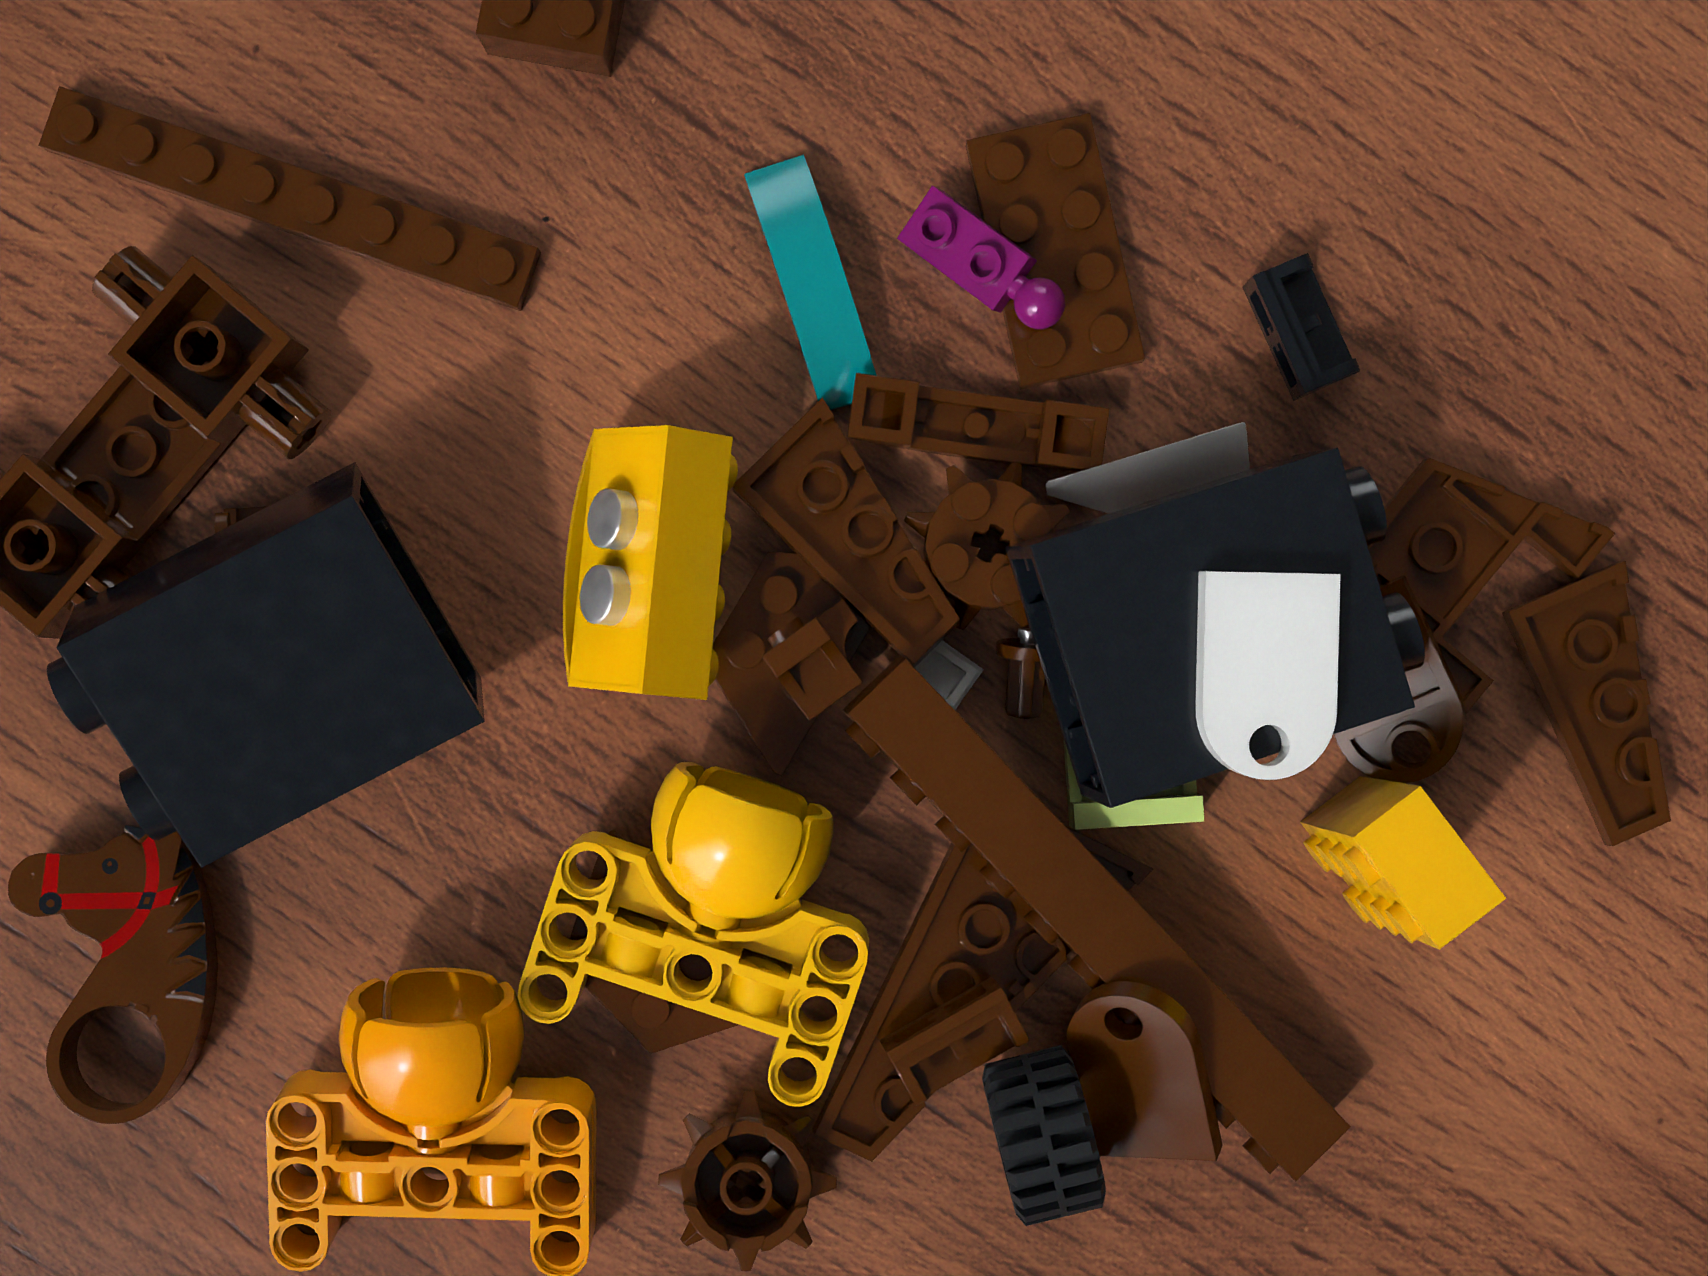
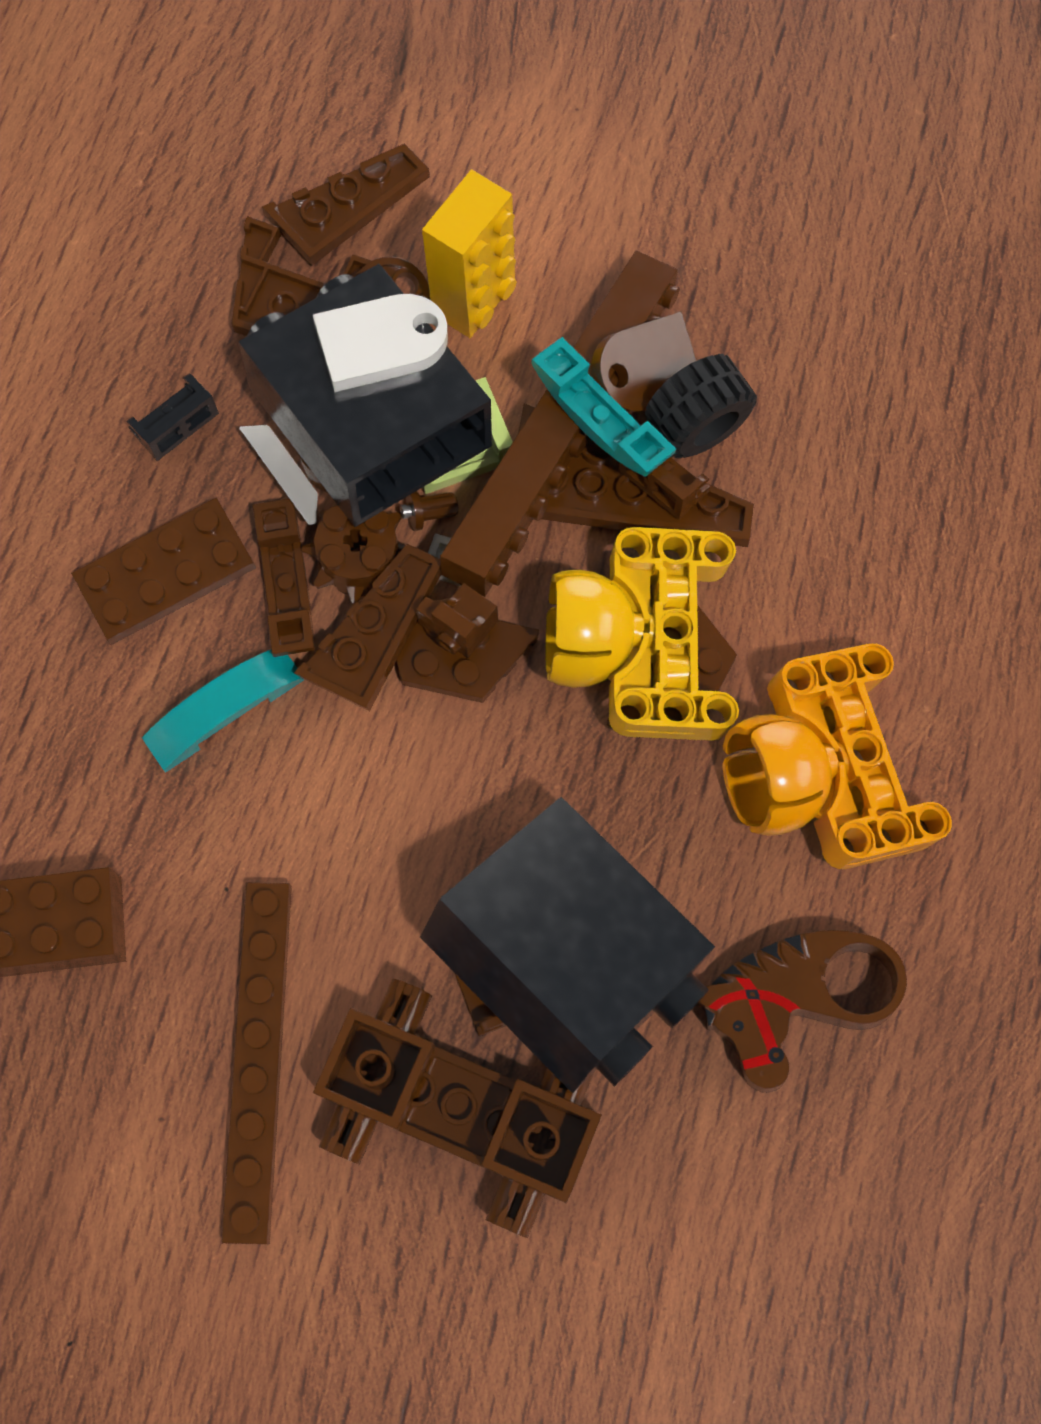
camera: 105 degrees left, 15 degrees down
(647, 561) = (429, 739): yellow piece -> none
(747, 1216) = (785, 590): reddish brown brick -> none
(981, 260) = (180, 605): magenta plate -> none
(1065, 974) = (597, 413): none -> teal slope

